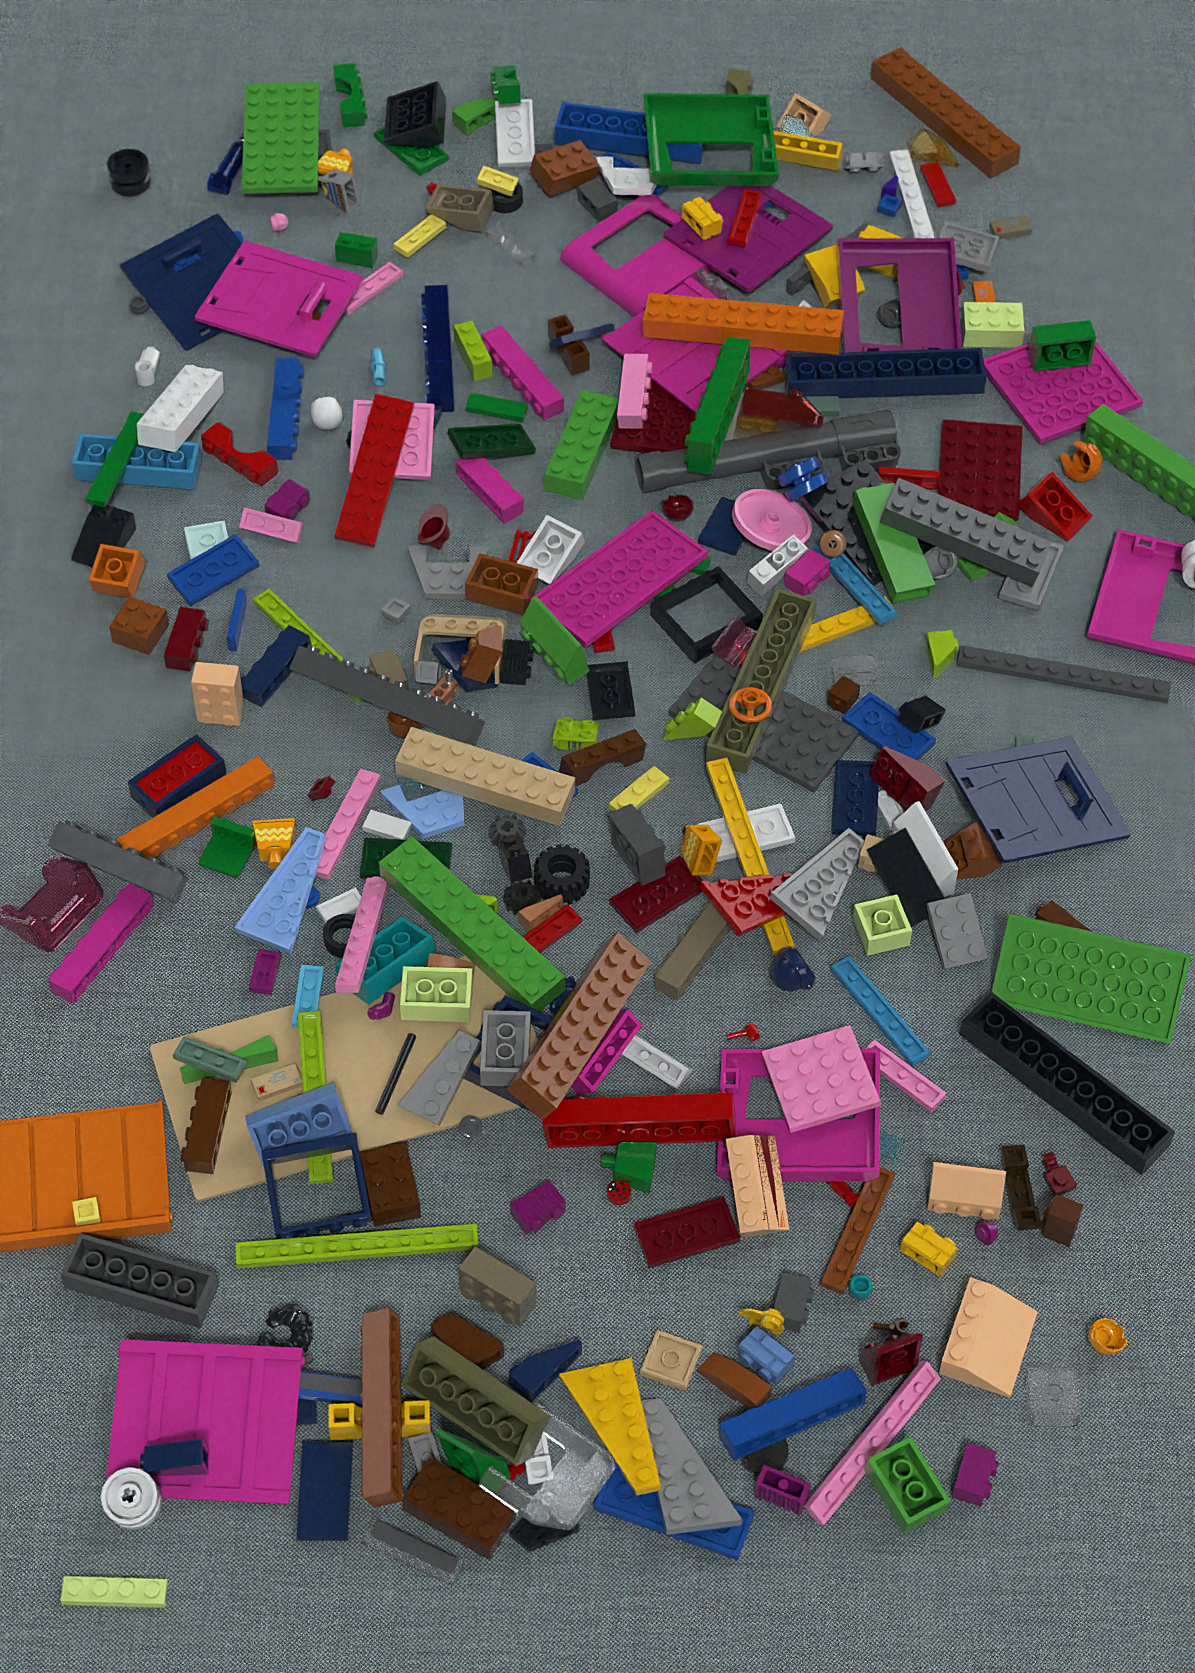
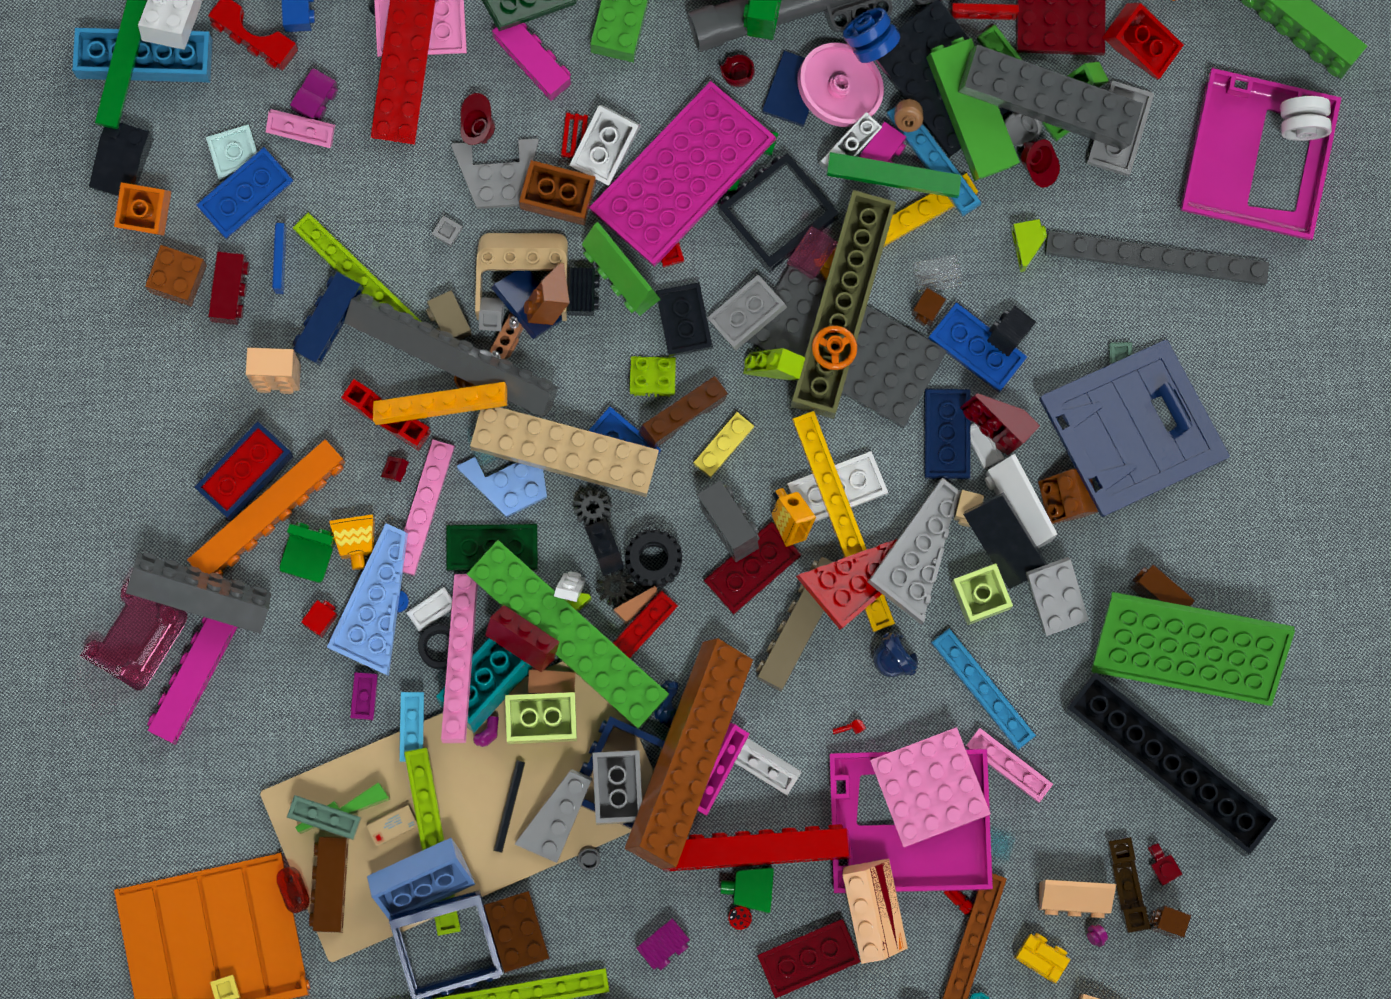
camera: 10 degrees left, 25 degrees up
(169, 1131) = (292, 890): none -> clear red plate
(231, 903) = (320, 617): none -> red brick
(300, 732) = (362, 399): none -> red arch
(371, 727) = (440, 403): none -> light orange plate
(386, 826) = (467, 507): white tile -> none
(426, 917) = (522, 638): none -> dark red brick
(477, 882) = (570, 586): none -> white plate
(670, 686) = (747, 312): none -> light grey plate
(816, 583) = (893, 175): none -> green tile
(956, 590) = (1041, 162): none -> dark red piece

